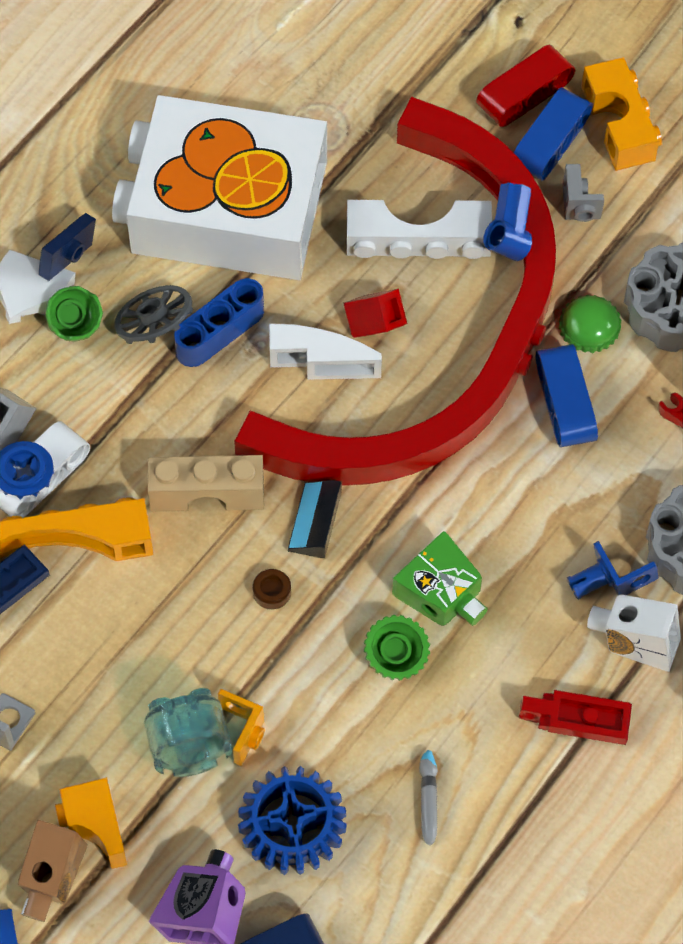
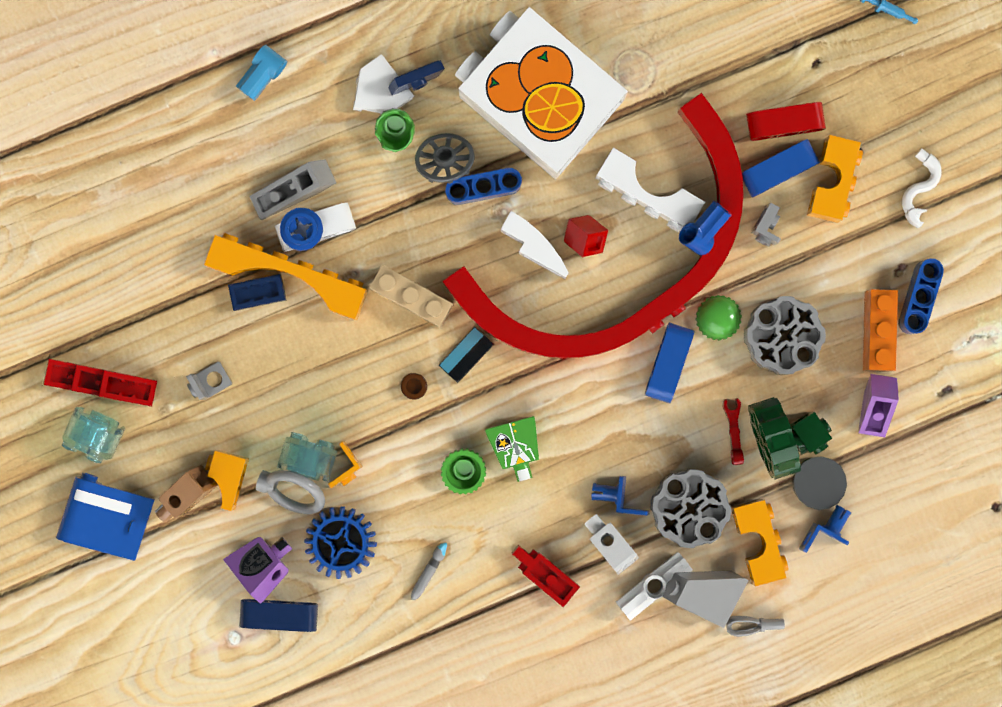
camera: 30 degrees right, 25 degrees up
(153, 789) = (268, 484): none -> light grey piece

